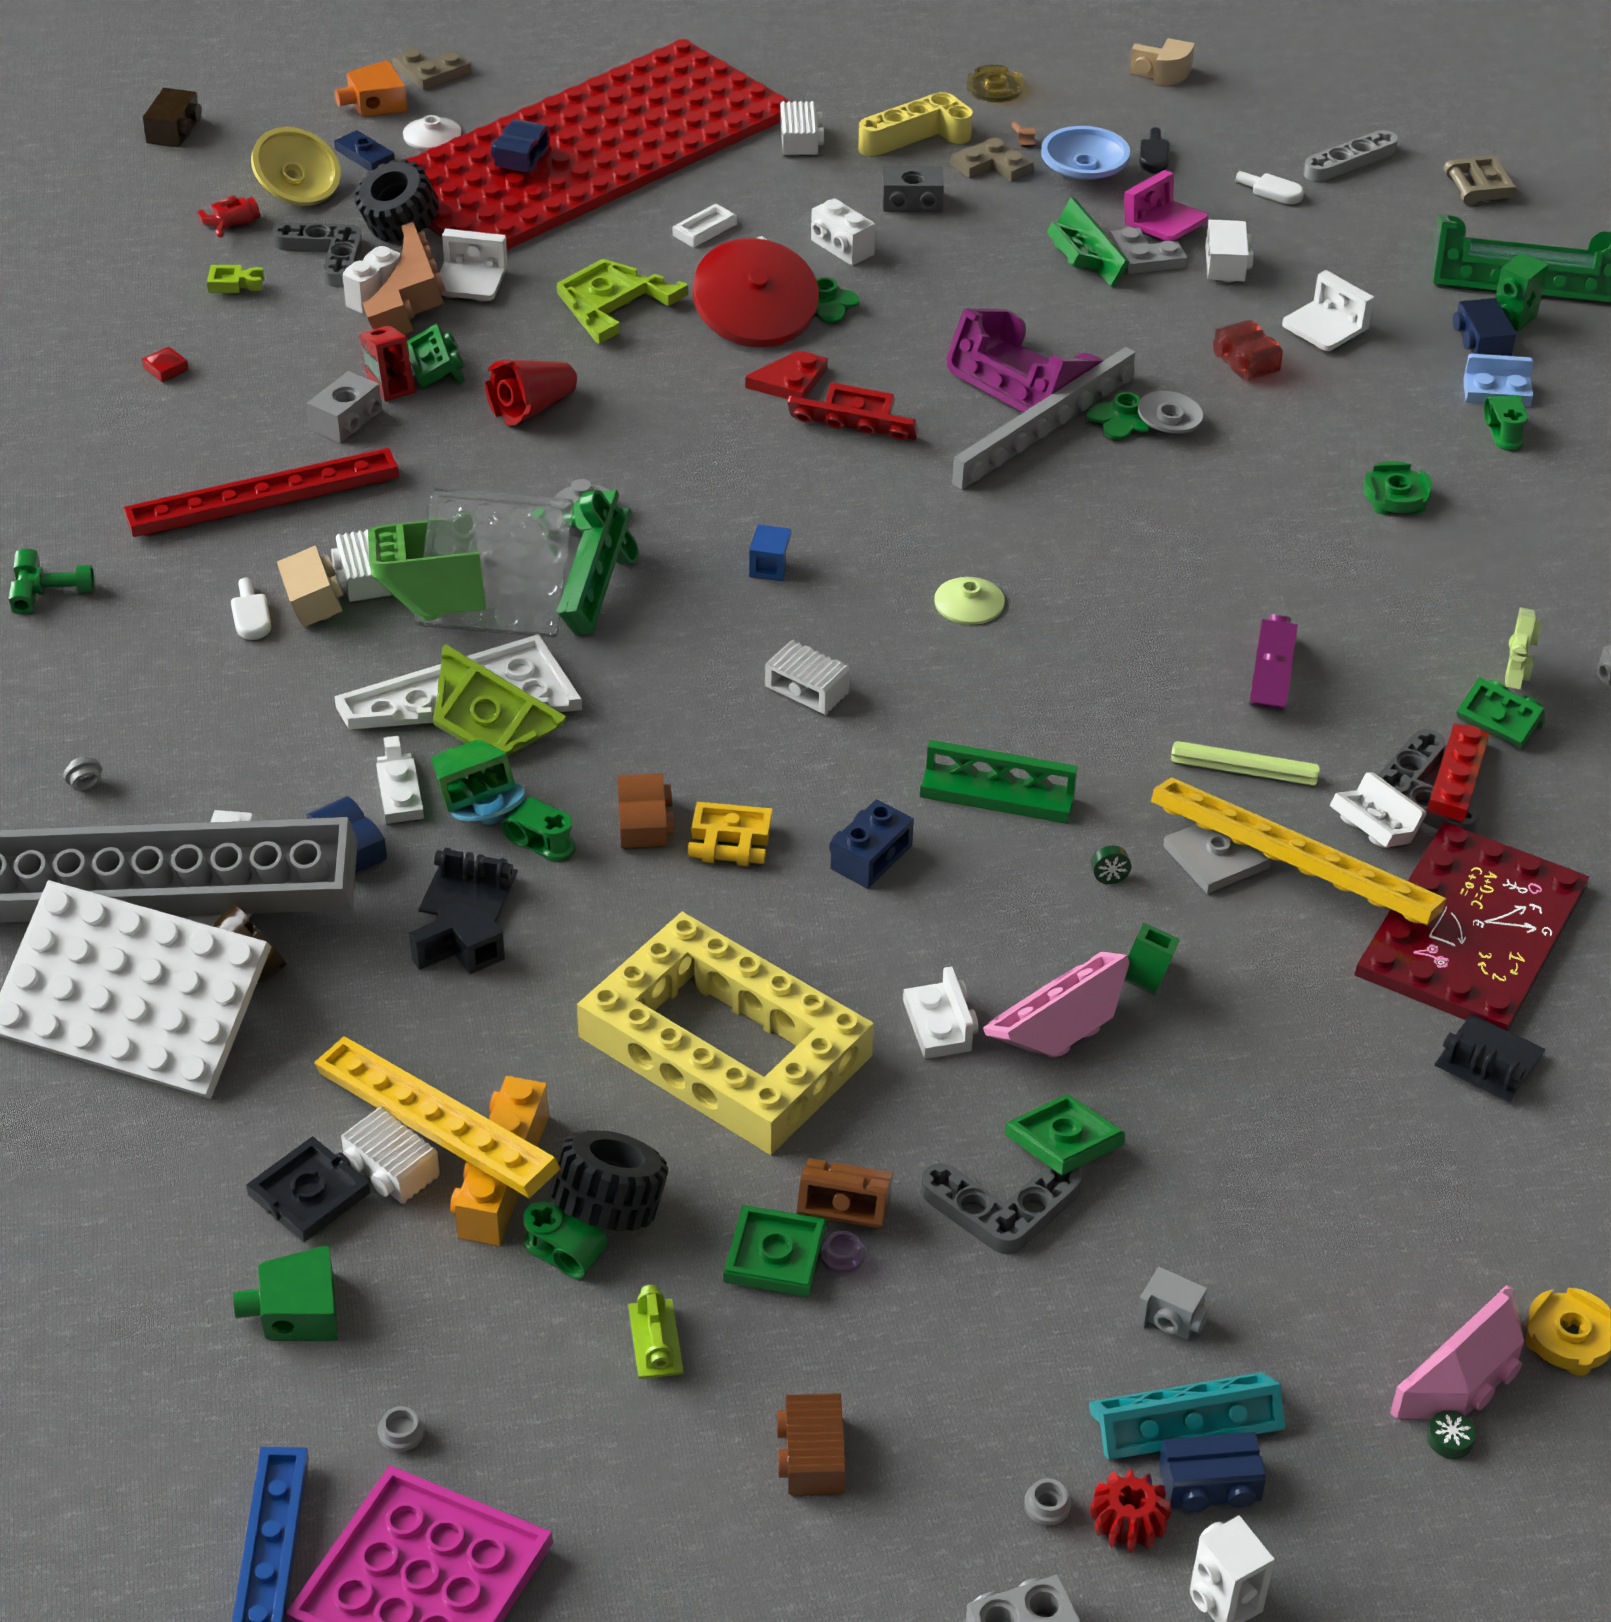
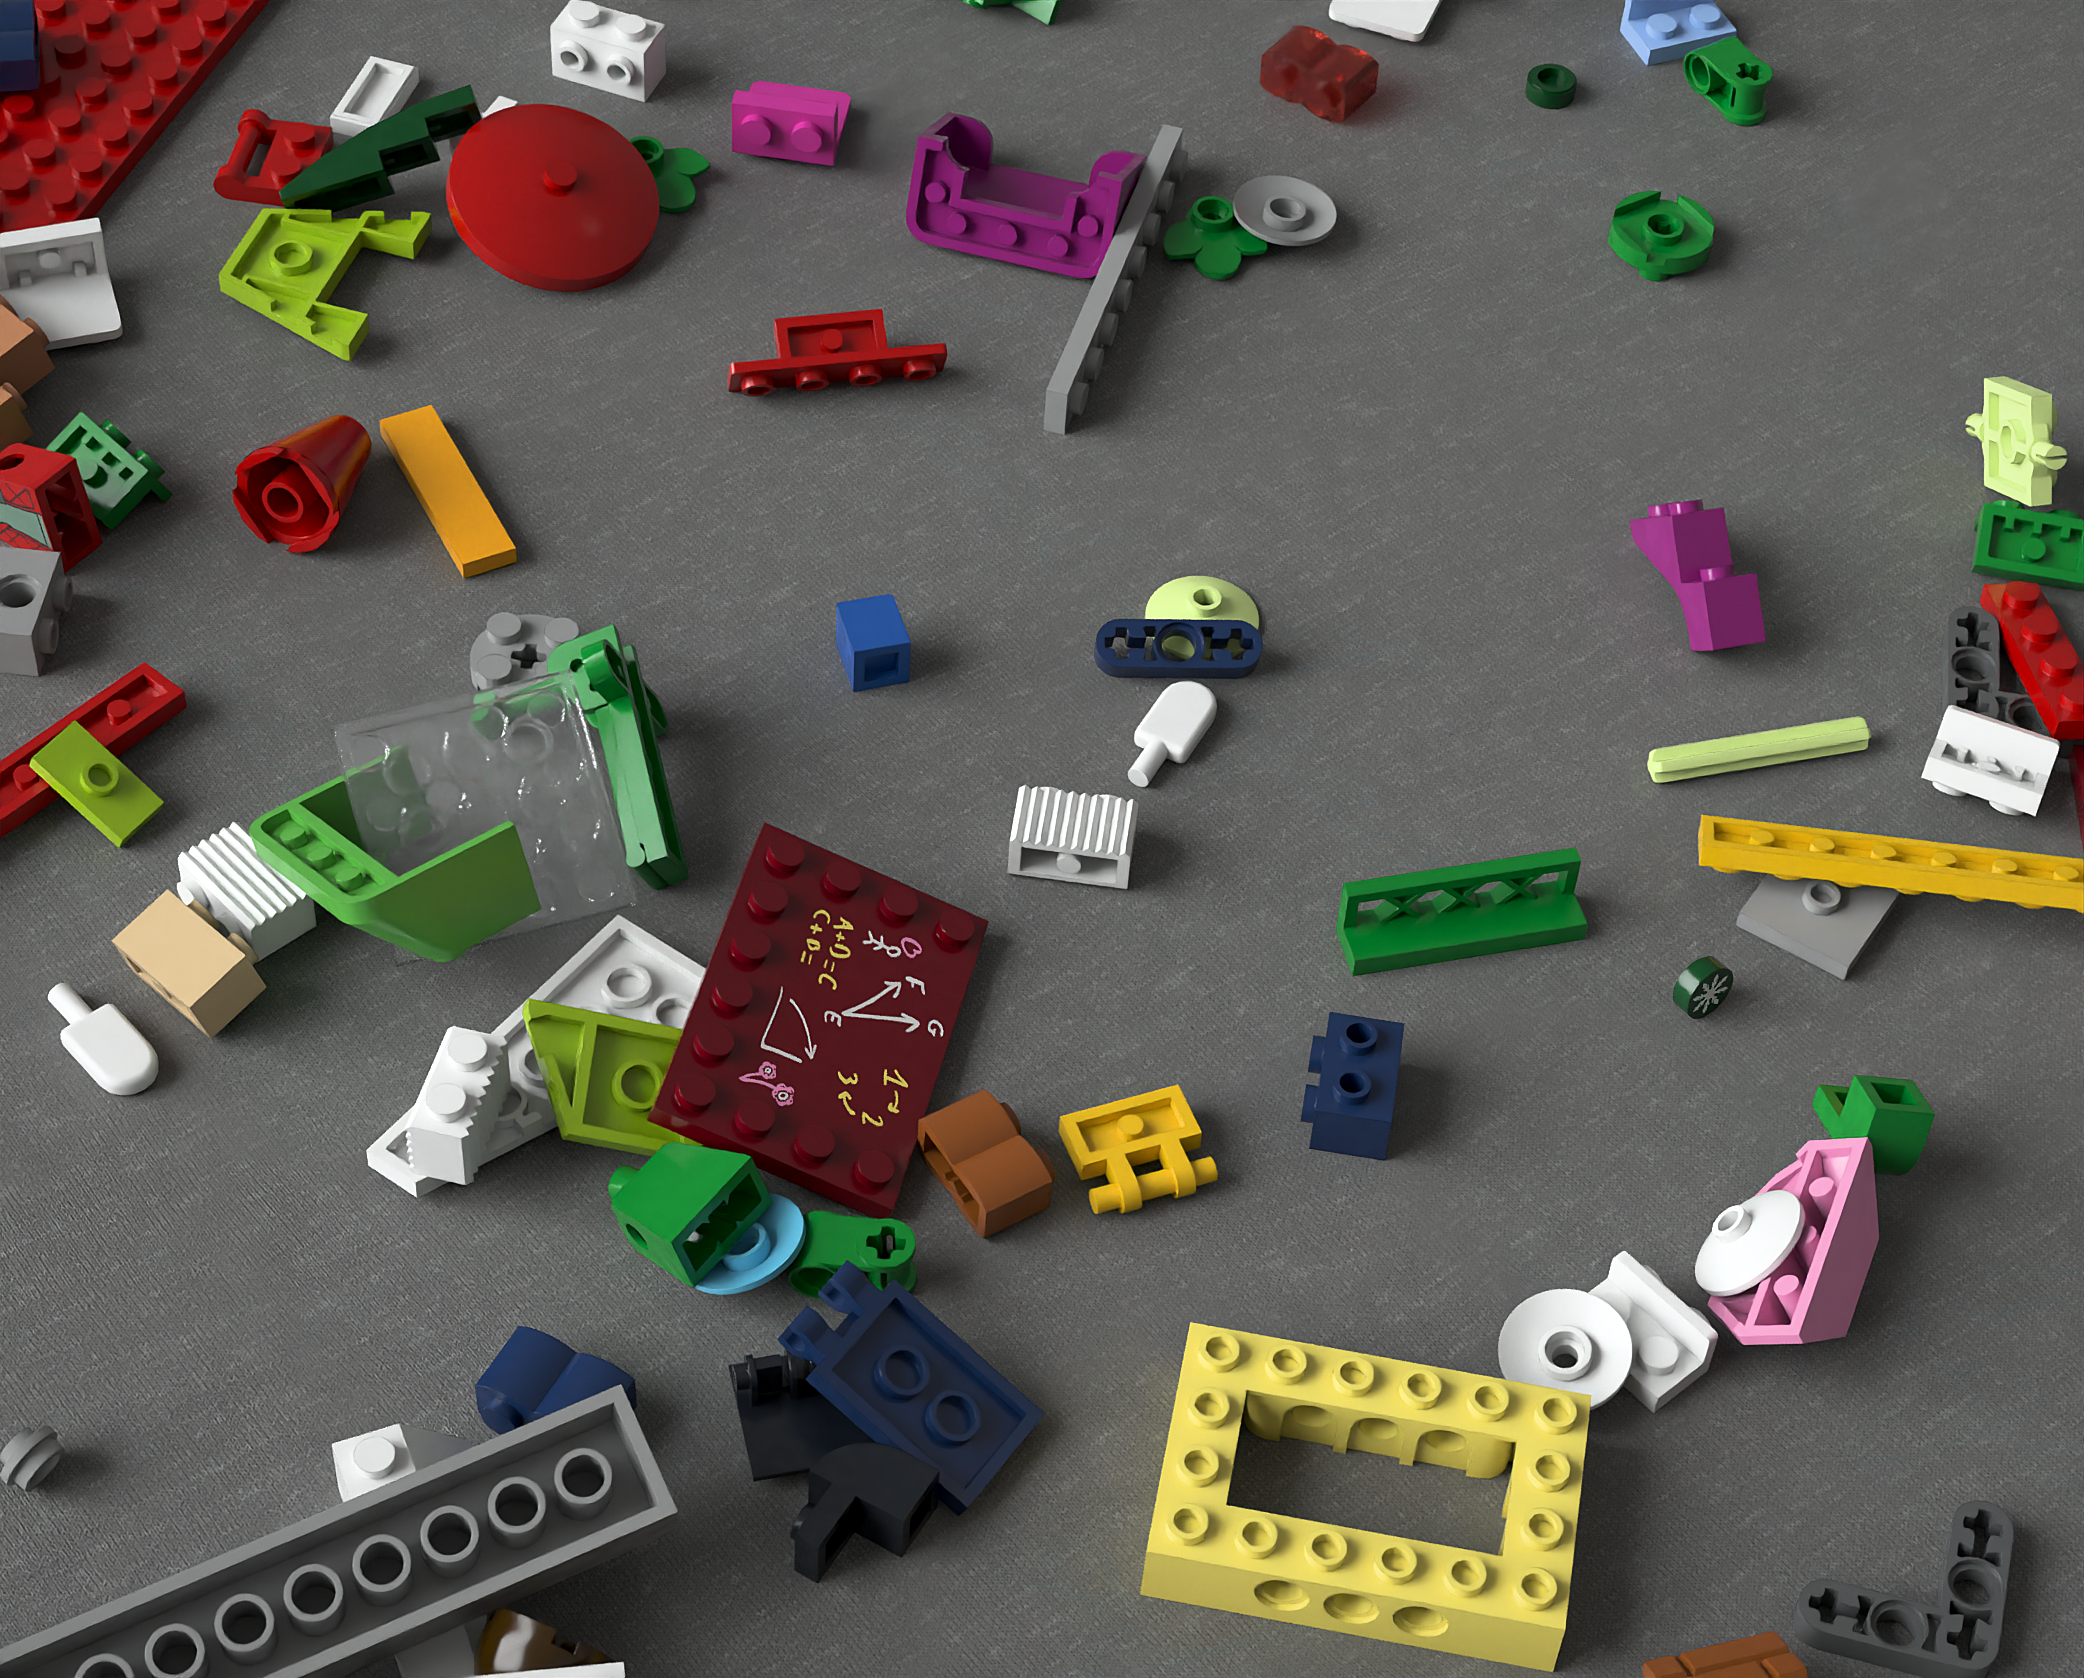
camera: 30 degrees left, 5 degrees up
(325, 494) = (96, 784): none -> lime plate
(385, 686) = (458, 1105): none -> white brick
(398, 784) = (566, 1265): white hinge -> none
(522, 893) = (912, 1383): none -> dark blue tile
(602, 713) = (821, 1022): none -> dark red plate
(603, 418) = (448, 491): none -> light orange tile
(634, 247) = (291, 152): none -> red plate
(667, 248) = (364, 164): none -> dark green slope
(789, 376) = (684, 324): red wing -> none
(890, 993) = (1567, 1324): none -> white dish
(908, 646) = (1172, 728): none -> white piece
(917, 292) = (789, 122): none -> dark pink bracket
(965, 605) = (1220, 664): none -> dark blue beam
(1028, 986) = (1749, 1242): none -> white dish
(1064, 1134) = (1941, 1457): green plate -> none
(1392, 395) = (1551, 86): none -> dark green tile

